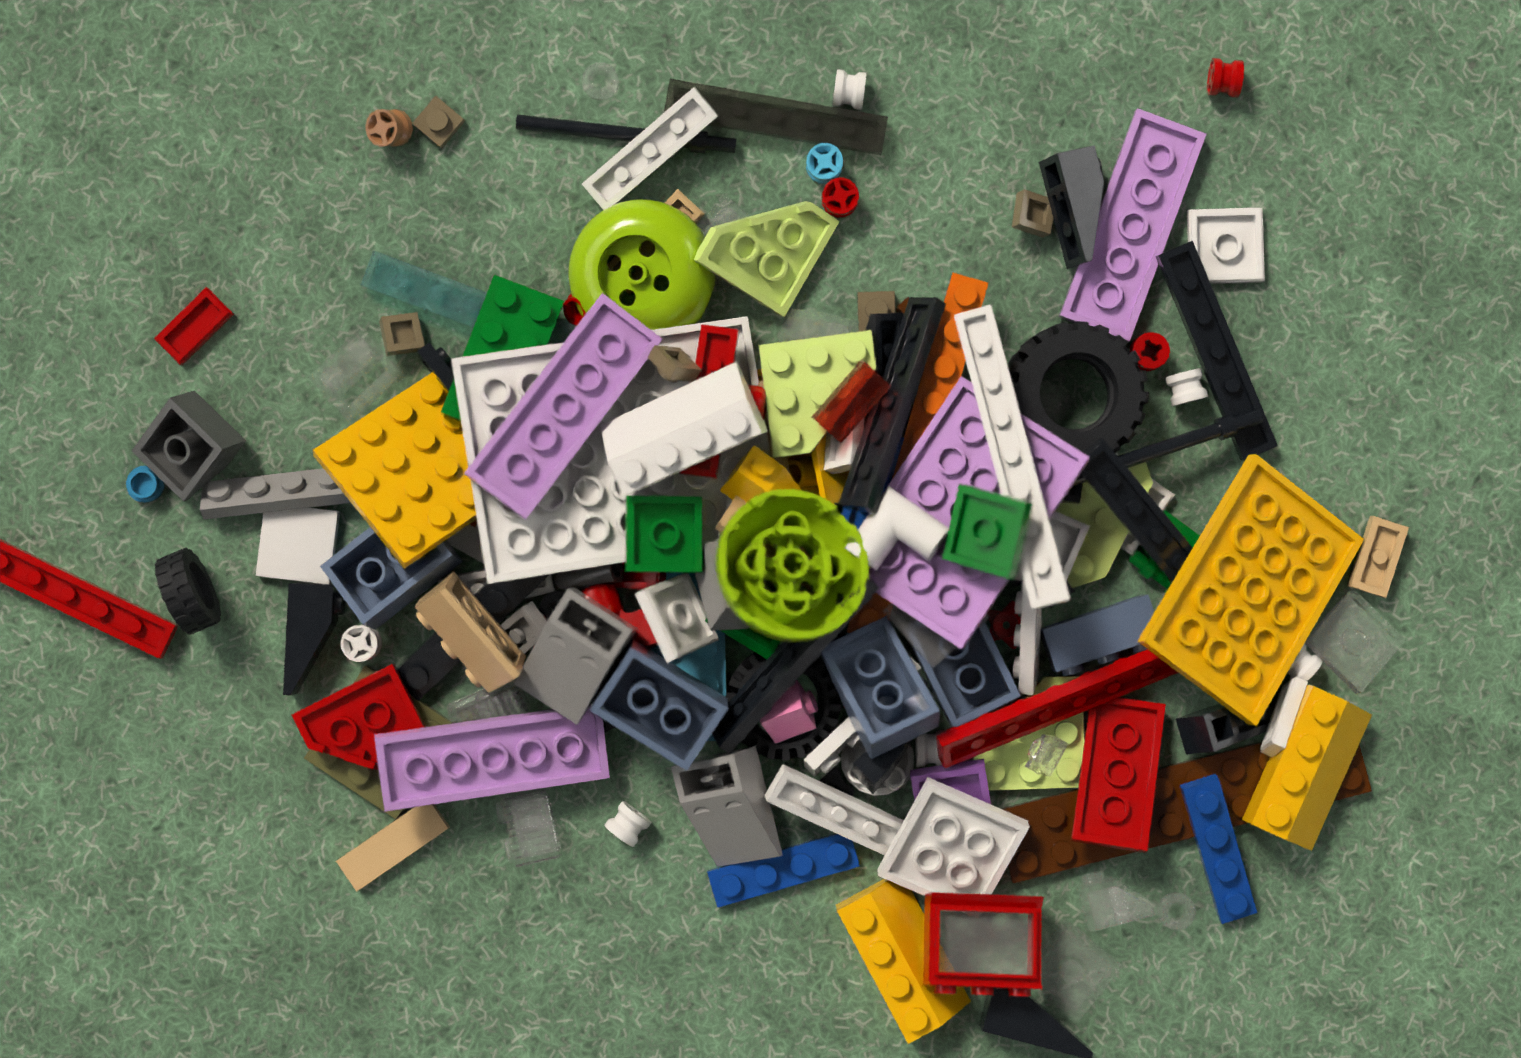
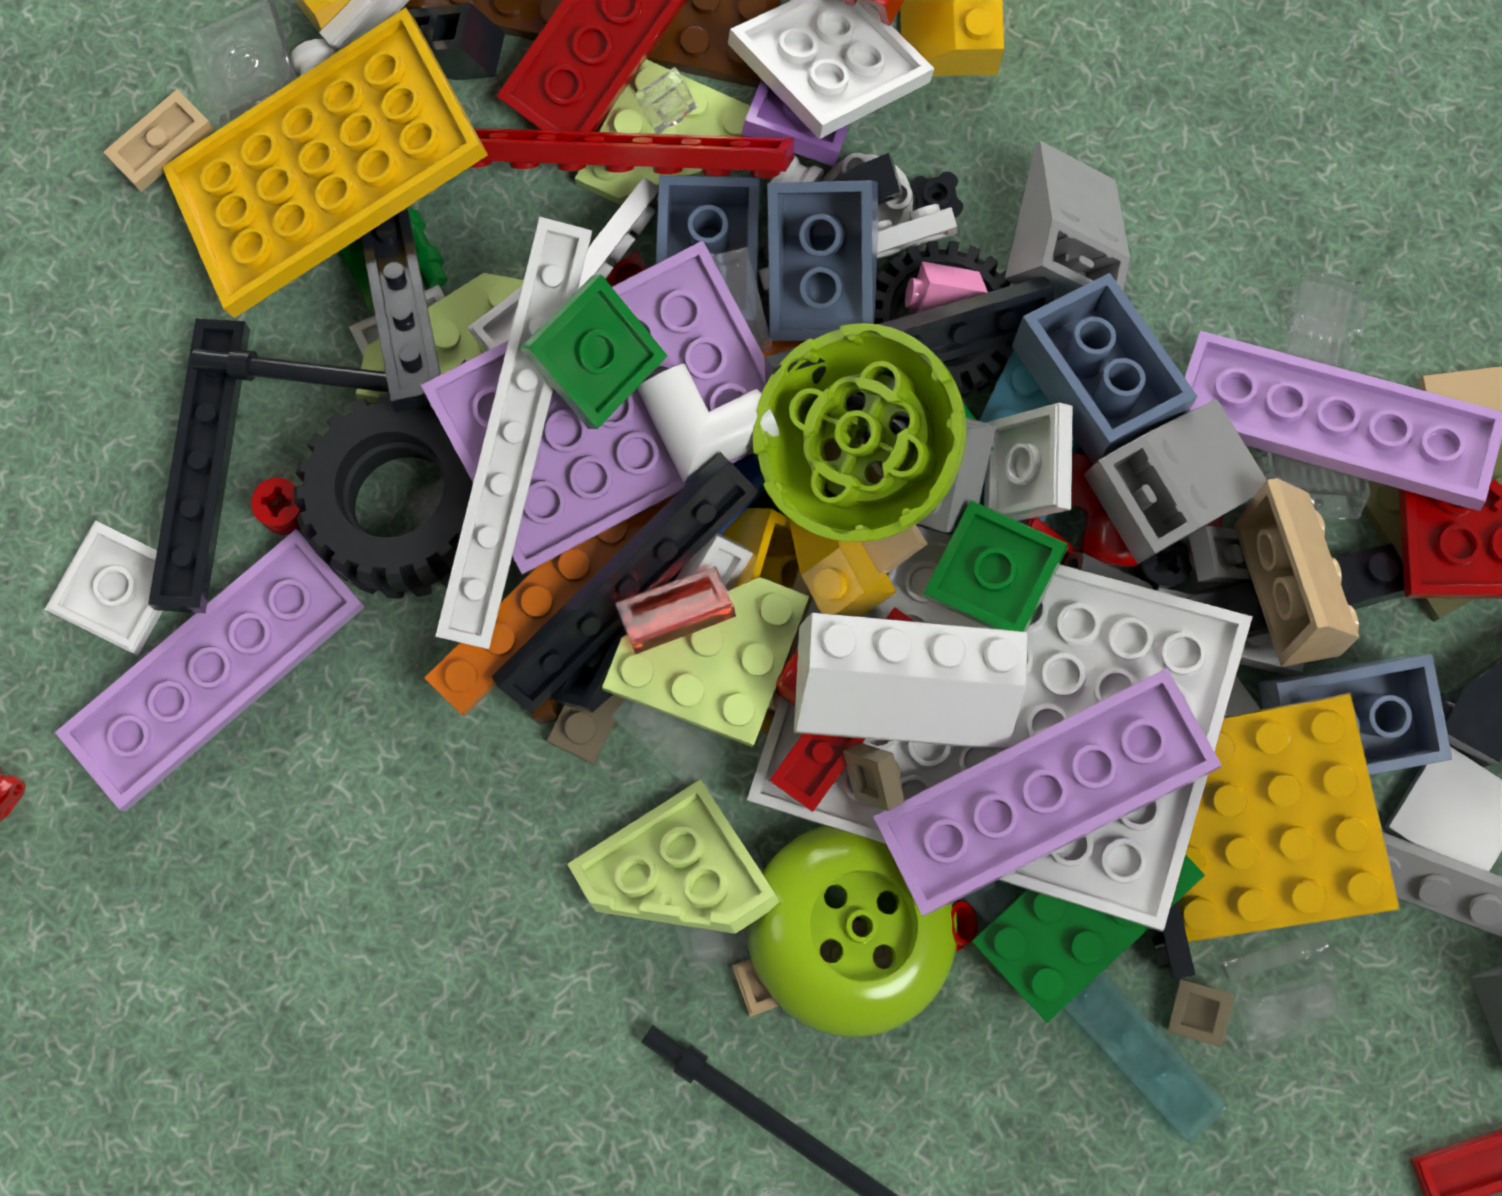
camera: 155 degrees left, 10 degrees down
(355, 640) = (1442, 640): white wheel -> none
(627, 823) = (1201, 274): white wheel -> none
(650, 149) = (758, 1084): white plate -> none
(788, 118) = (577, 1044): clear smoke plate -> none
(796, 865) = (1013, 133): blue plate -> none
(827, 157) = (534, 944): medium azure wheel -> none
(833, 809) = (948, 164): white plate -> none
(839, 190) = (540, 892): red wheel -> none
(849, 89) = (462, 1028): white wheel -> none
(1032, 214) = (322, 746): dark tan plate -> none
(1074, 194) = (259, 737): slope -> none
(1096, 634) = (507, 207): sand blue brick -> none
(1186, 387) = (261, 441): white wheel -> none

